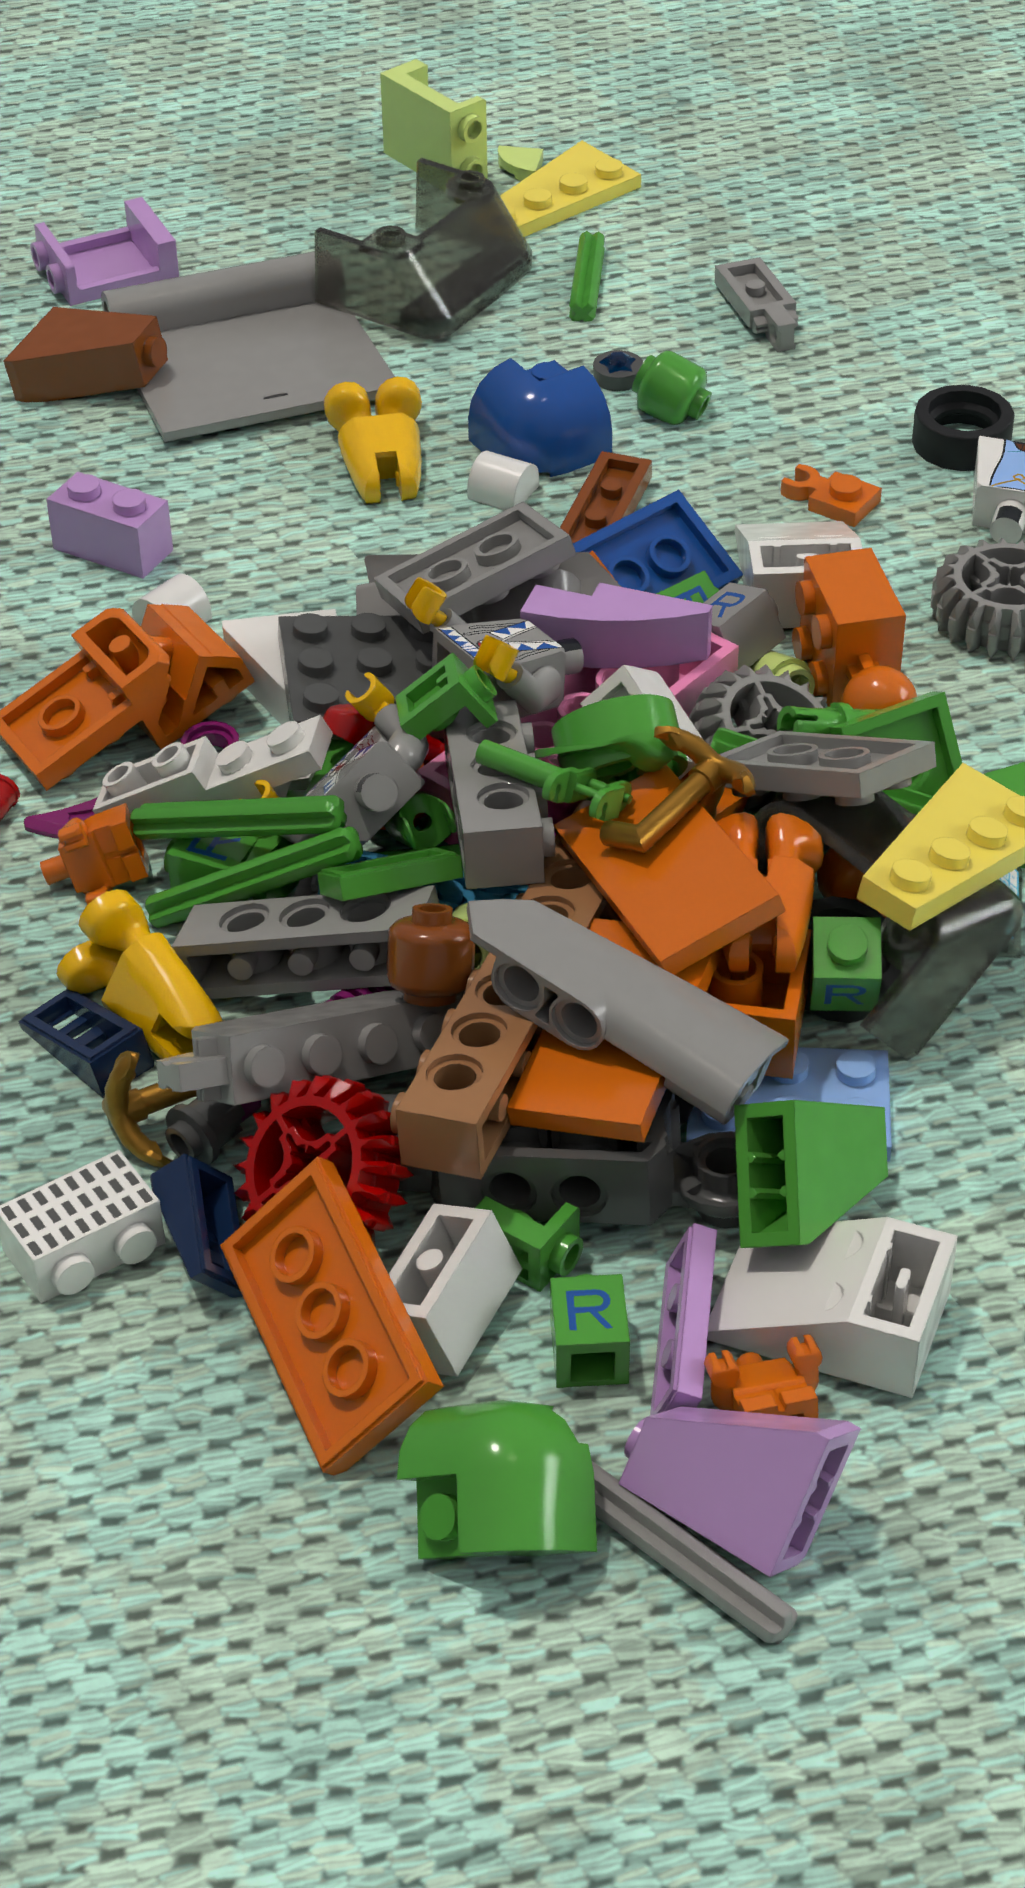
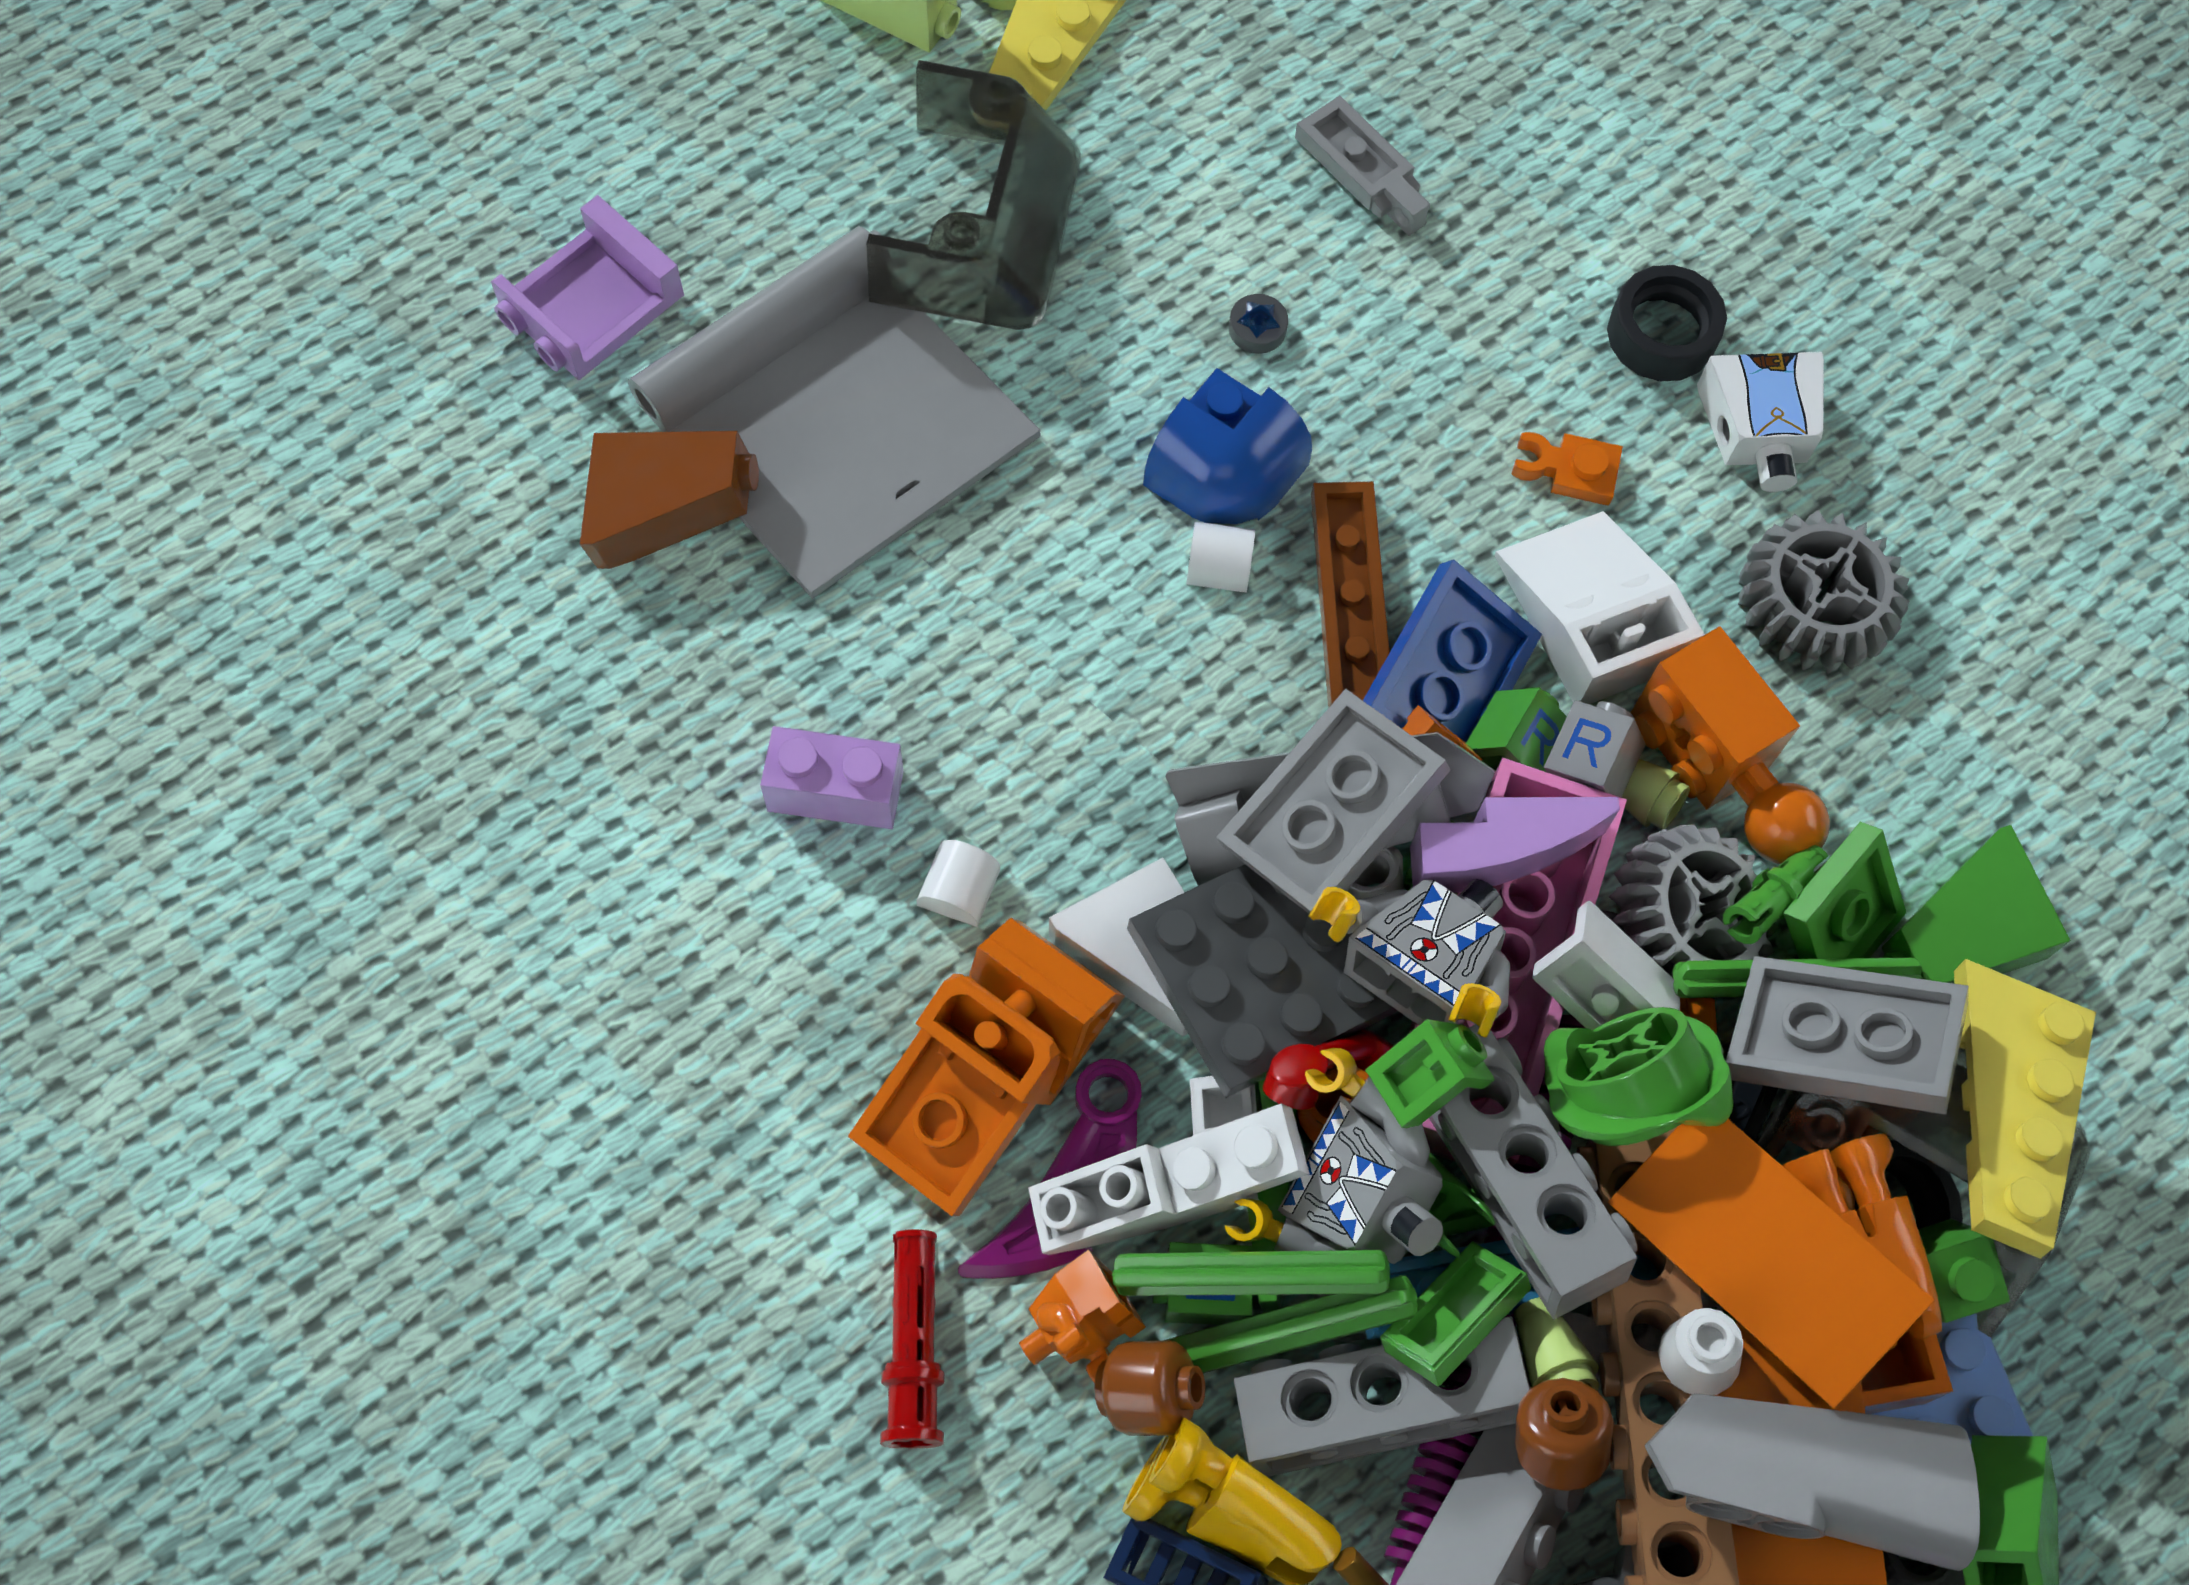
camera: 25 degrees left, 25 degrees up
(125, 871) = (1148, 1387): none -> dark orange head
(382, 443) = (1067, 540): yellow piece -> none
(558, 783) = (1621, 1176): bright green piece -> none
(580, 897) = (1702, 1352): none -> white hat
(587, 277) = (1154, 169): bright green axle -> none
(671, 388) = (1340, 350): bright green head -> none
(703, 785) = (1773, 1130): pearl gold piece -> none

